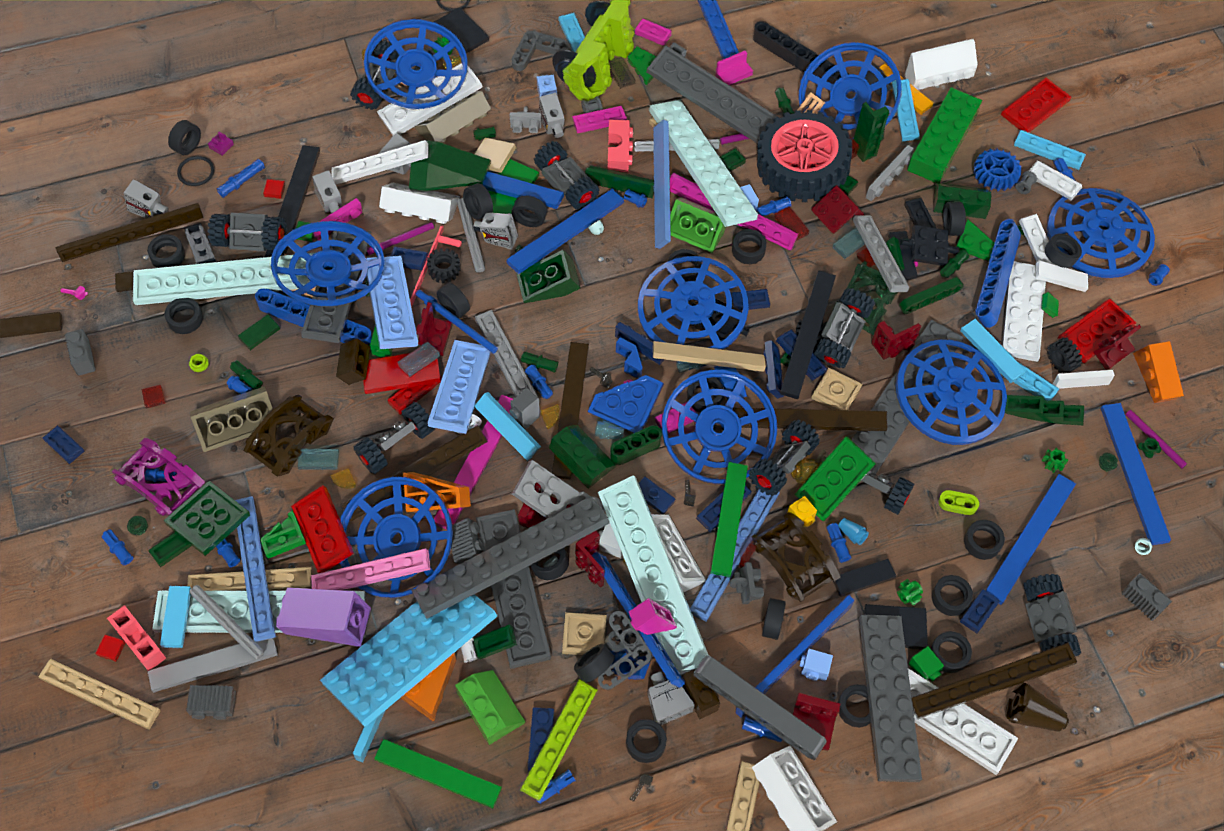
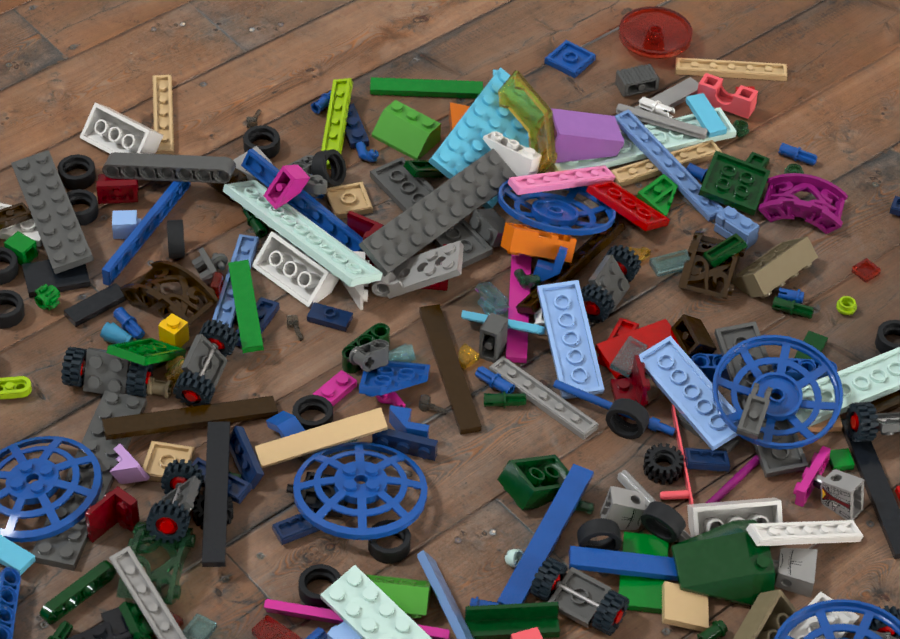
camera: 160 degrees right, 15 degrees down
(145, 596) = (741, 127): none -> clear green plate
(148, 764) = (655, 32): none -> clear red dish
(218, 644) = (656, 107): none -> white axle
(238, 469) = (731, 222): none -> medium blue brick
(259, 769) = (570, 58): none -> blue tile
(273, 427) = (724, 250): none -> dark green tile
(359, 245) = (754, 413): none -> dark grey hinge
(365, 625) = (534, 116): none -> clear yellow windscreen
(405, 608) = (519, 158): none -> white slope
(437, 468) = (546, 269): none -> blue slope
(465, 468) = (527, 281): none -> arm
(499, 464) = (491, 299): none -> clear light blue plate
(543, 691) = (370, 156): none -> blue arm
(581, 455) = (416, 319): dark green slope -> none
(641, 418) = (370, 355): none -> dark grey piece
(718, 415) = (285, 381): blue dish -> none
(859, 745) = (77, 162): none -> black tyre
(870, 382) = (127, 469): none -> lavender slope

